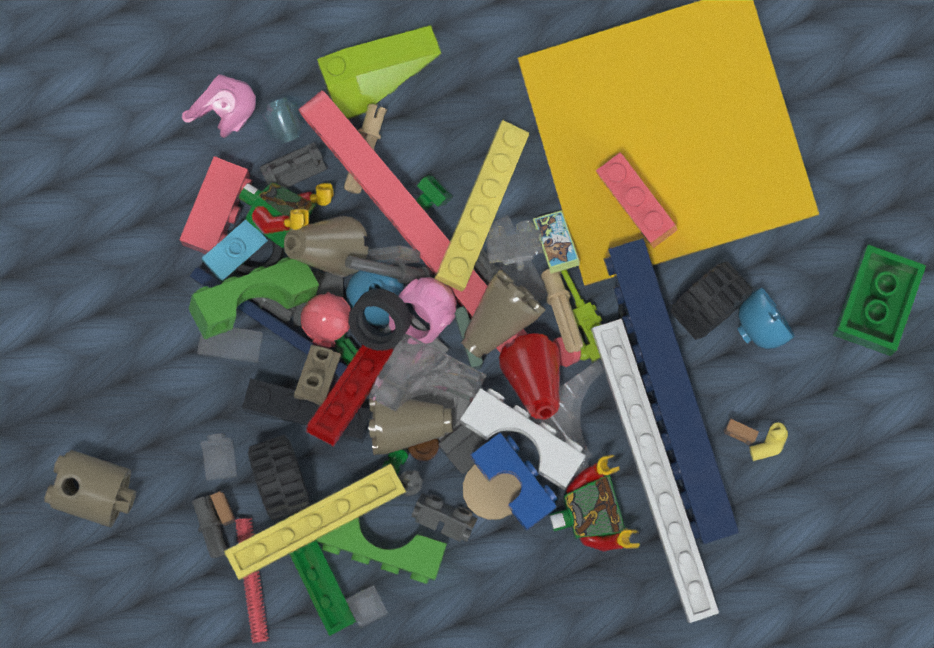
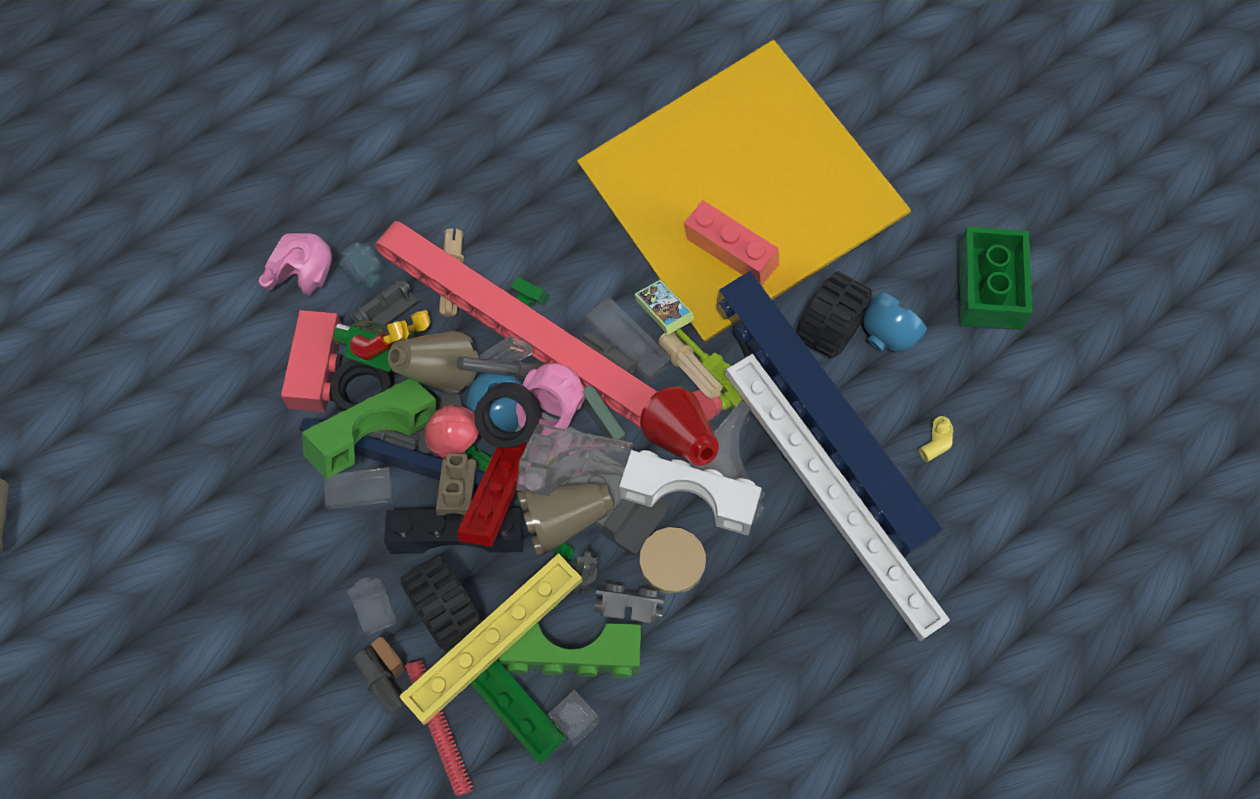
camera: 15 degrees left, 15 degrees down
(101, 492) = (247, 672): dark tan cylinder -> none
(234, 250) = (340, 389): medium azure plate -> none
(376, 68) = (443, 198): lime wedge -> none
(425, 451) = (589, 539): reddish brown tile -> none
(482, 206) = (581, 292): light yellow plate -> none
(500, 315) = (630, 376): dark tan cone -> none
(500, 457) = (672, 522): blue arch -> none
(515, 247) = (625, 317): clear hips -> none
(594, 510) = (785, 551): torso -> none
(740, 432) = (906, 435): medium nougat tile -> none

